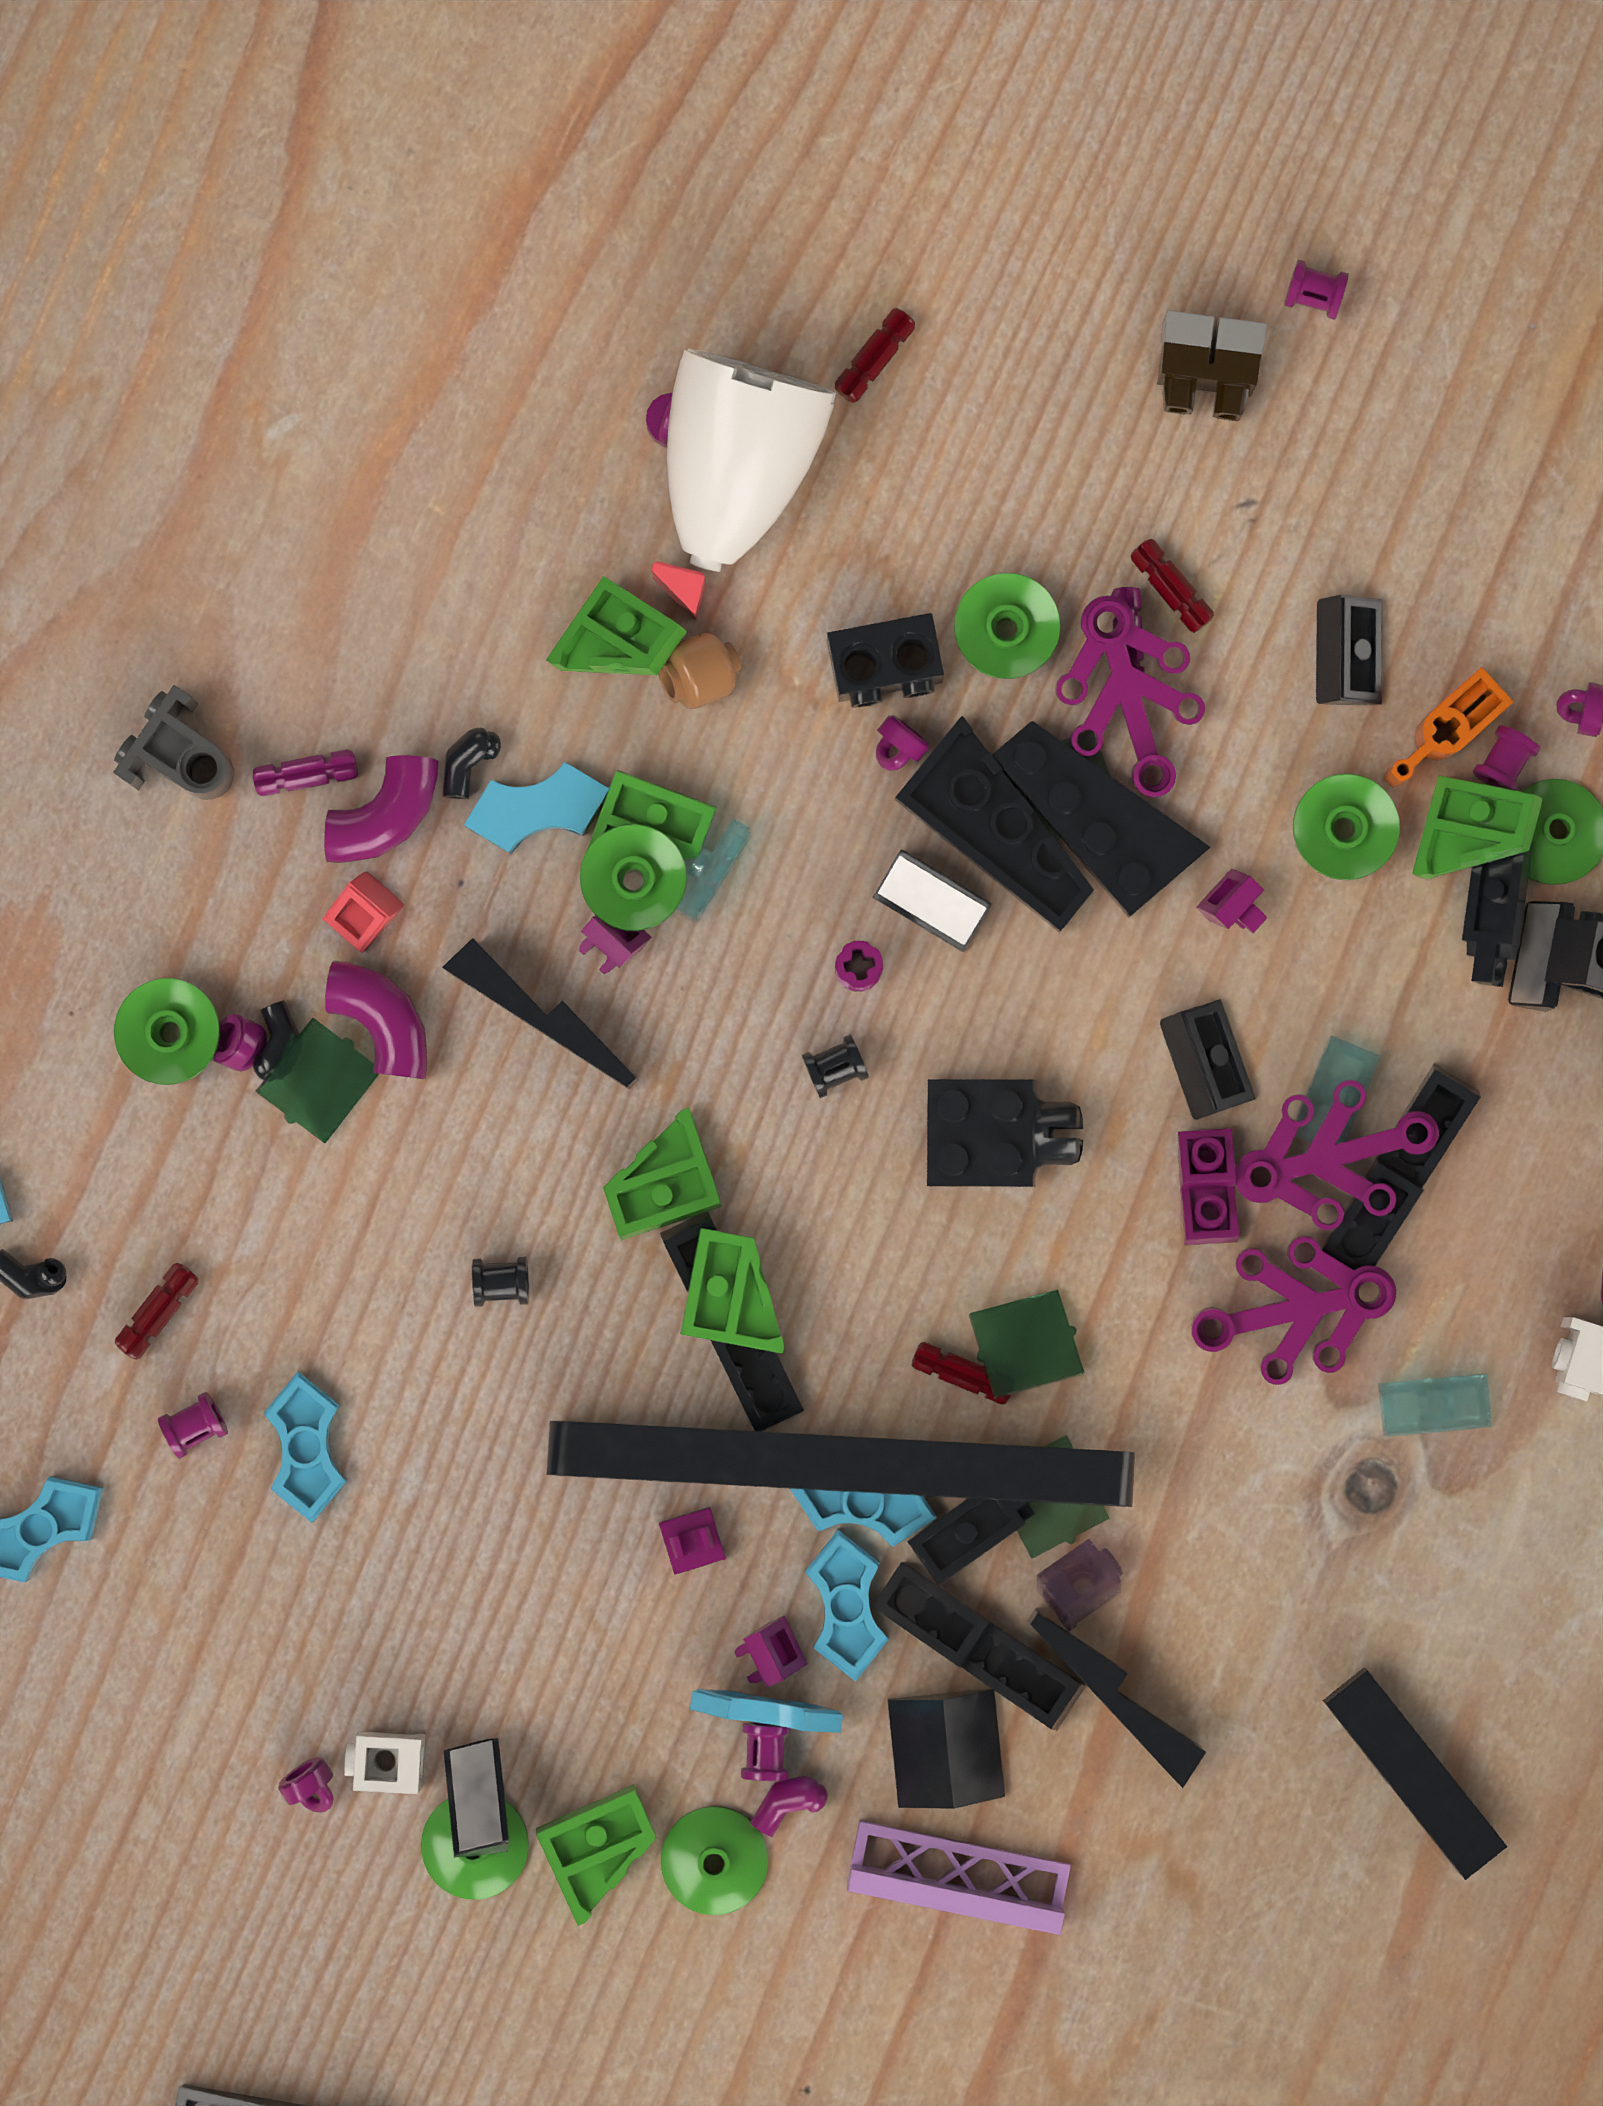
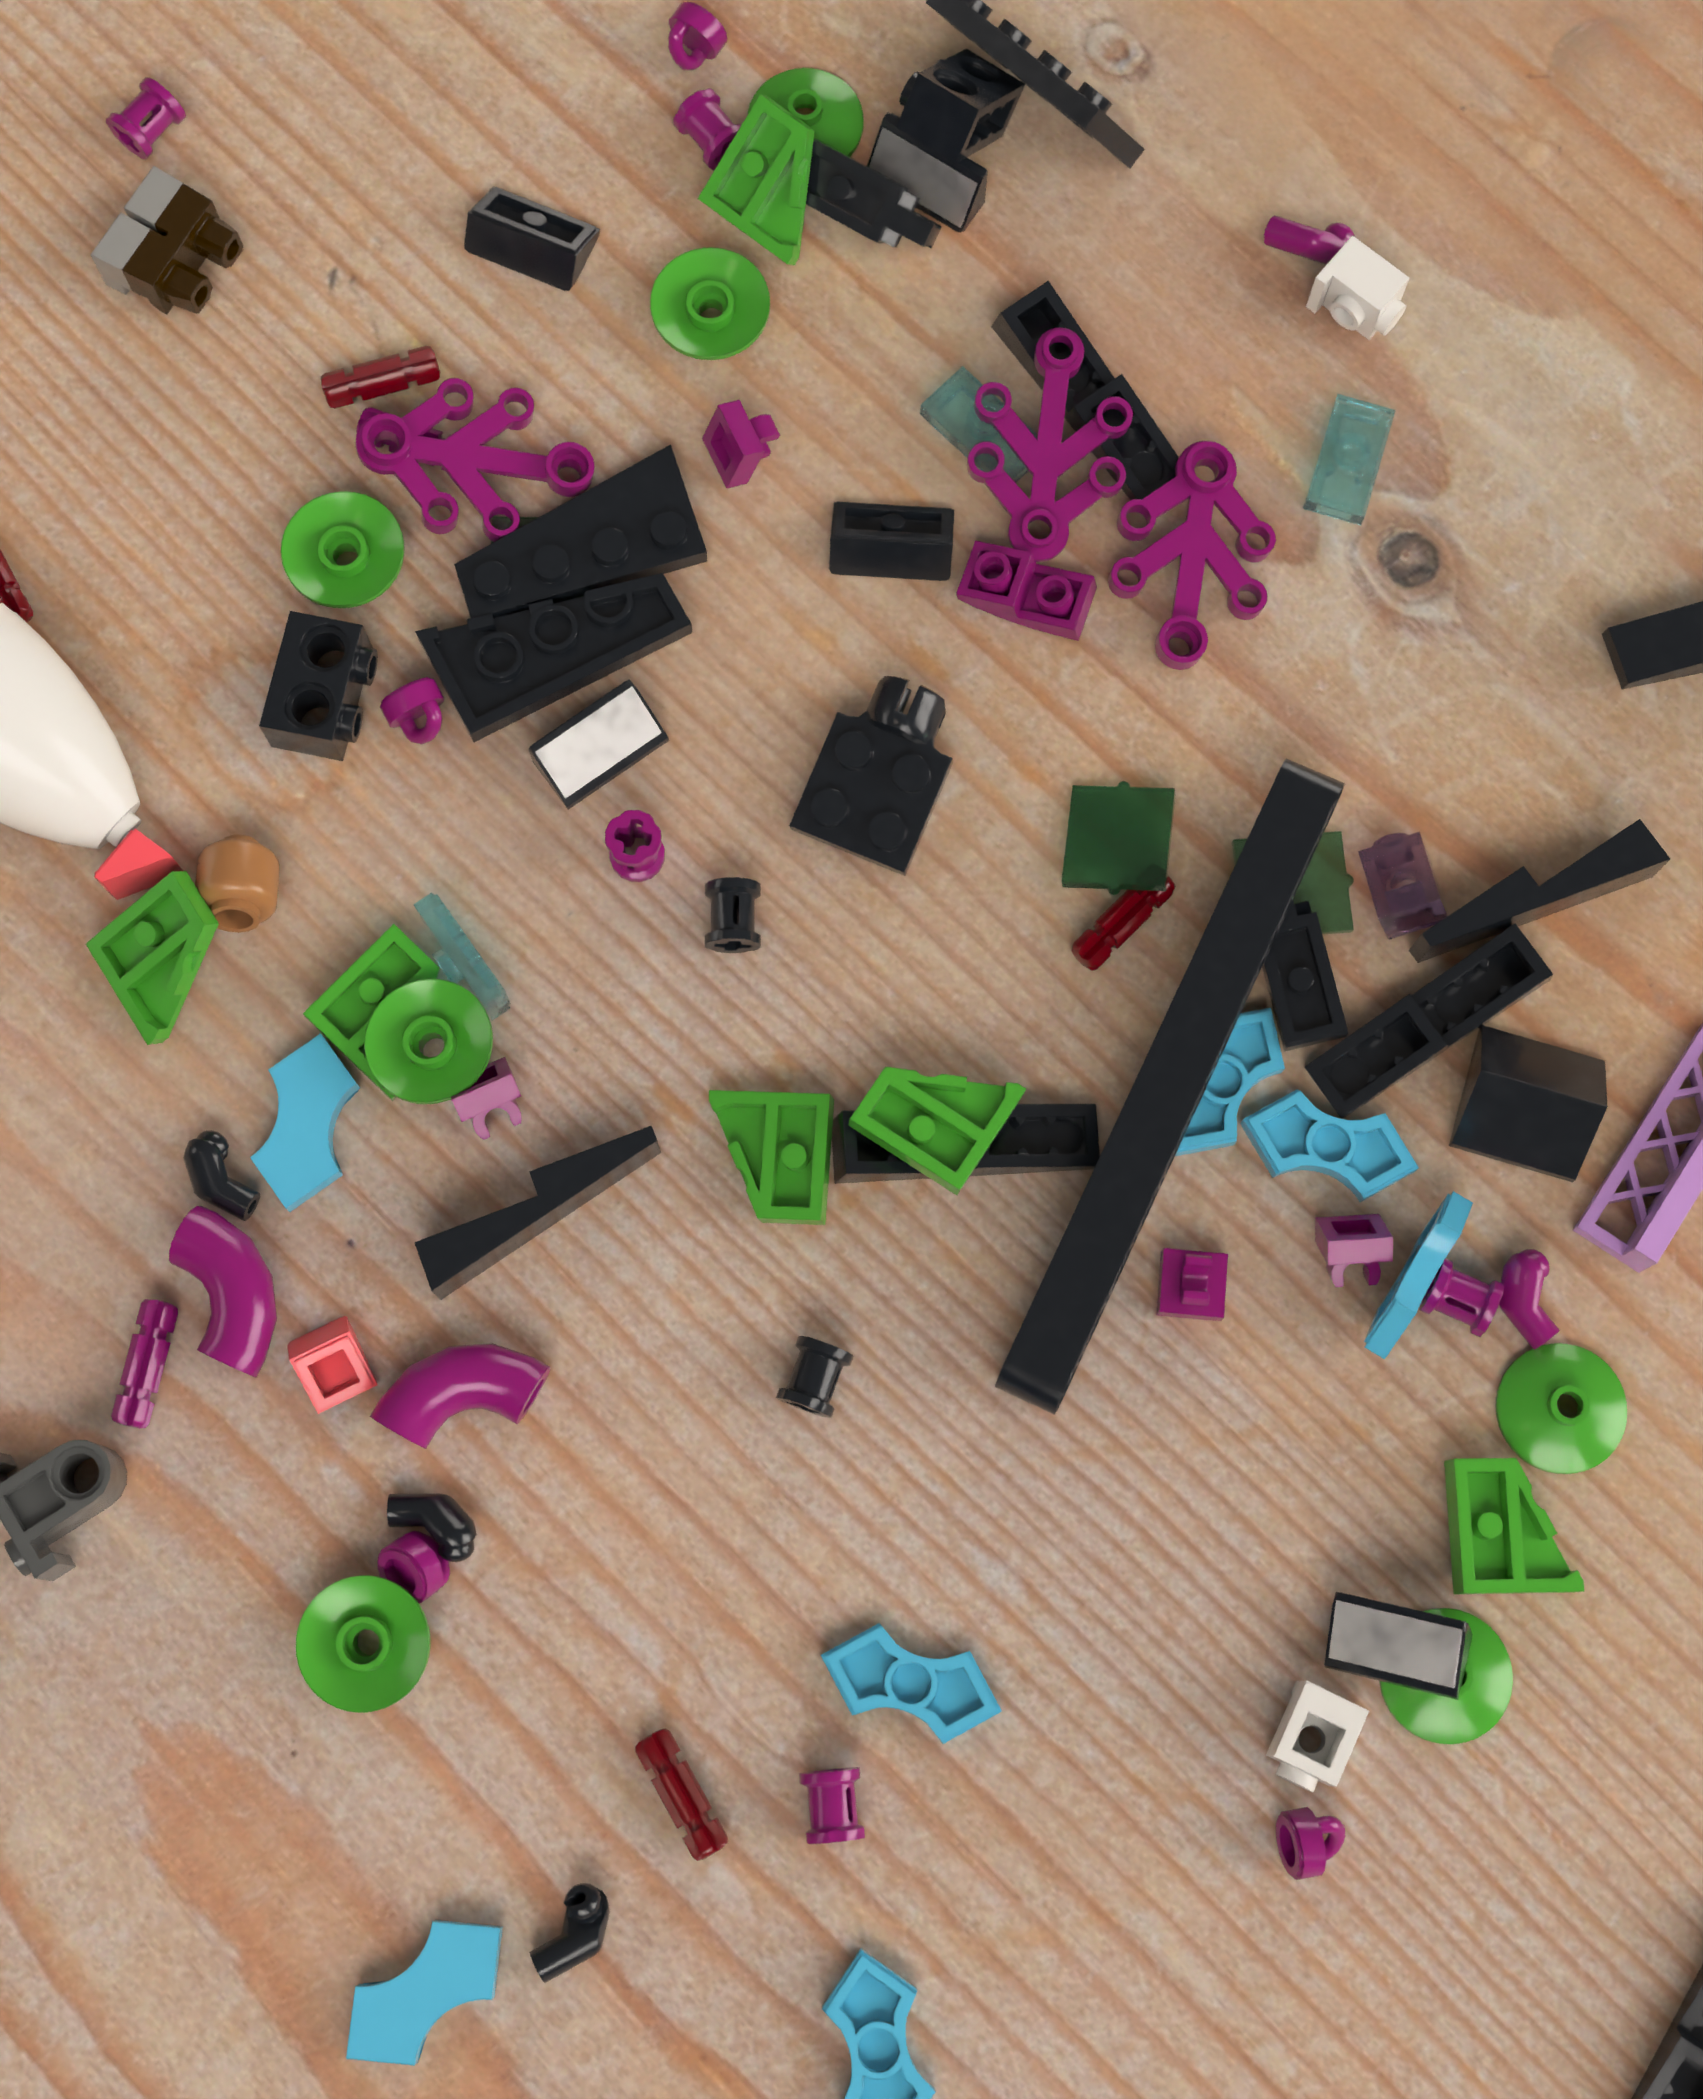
camera: 65 degrees left, 10 degrees down
(318, 1080) = (497, 1491): clear green piece -> none
(1463, 727) = (651, 162): orange piece -> none

